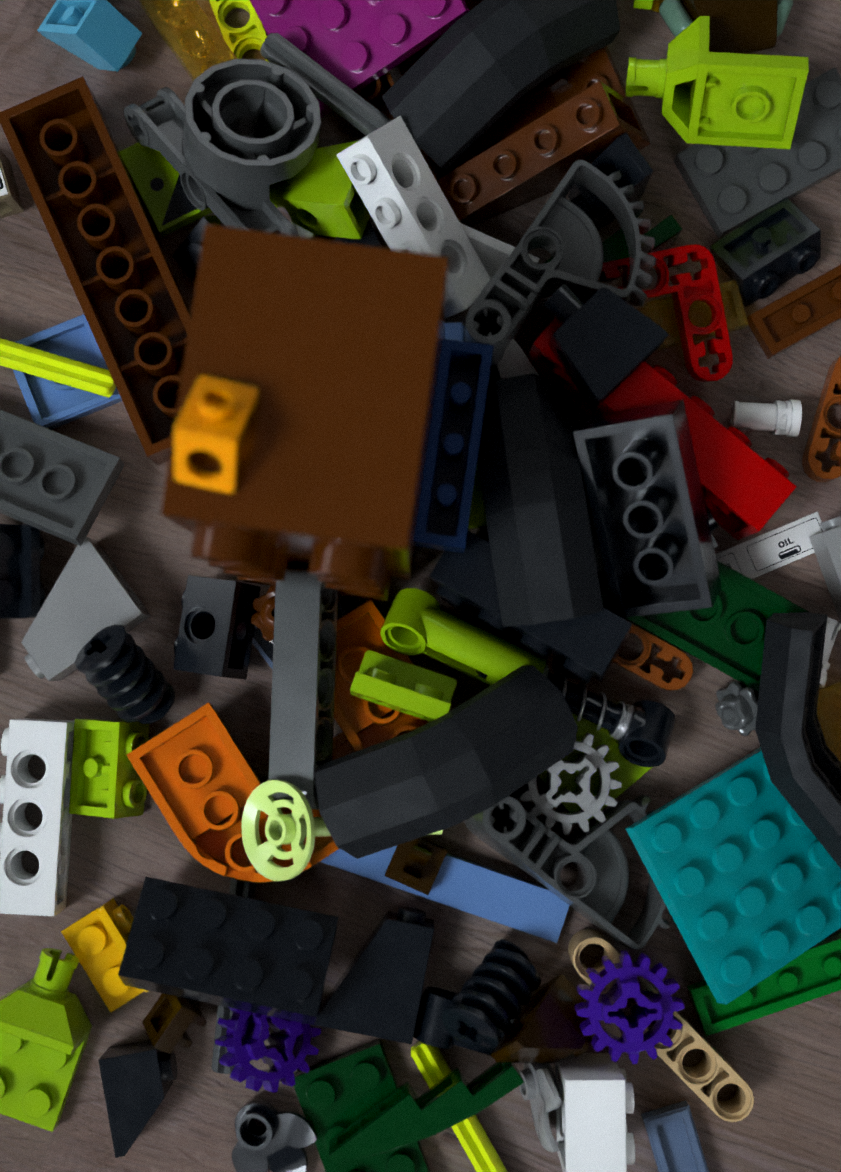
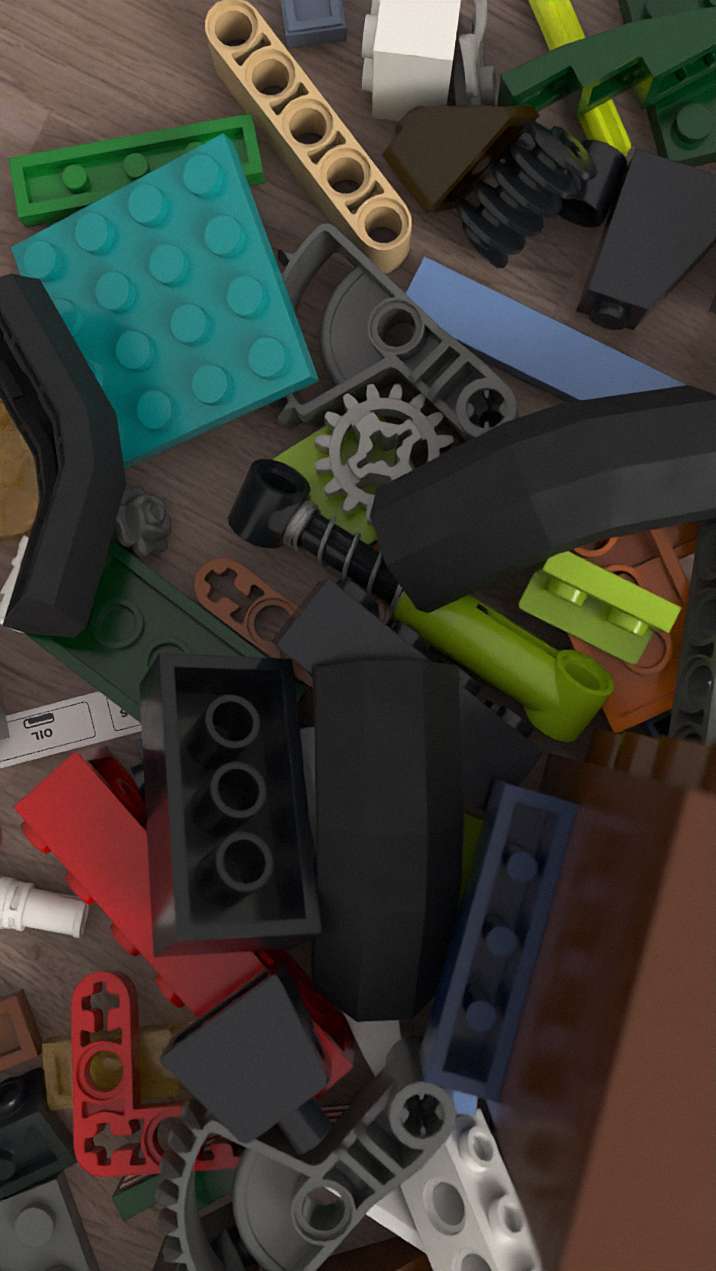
camera: 170 degrees left, 0 degrees up
(416, 864) = (595, 373): dark brown tile -> none
(649, 1008) = (348, 119): dark purple gear -> none

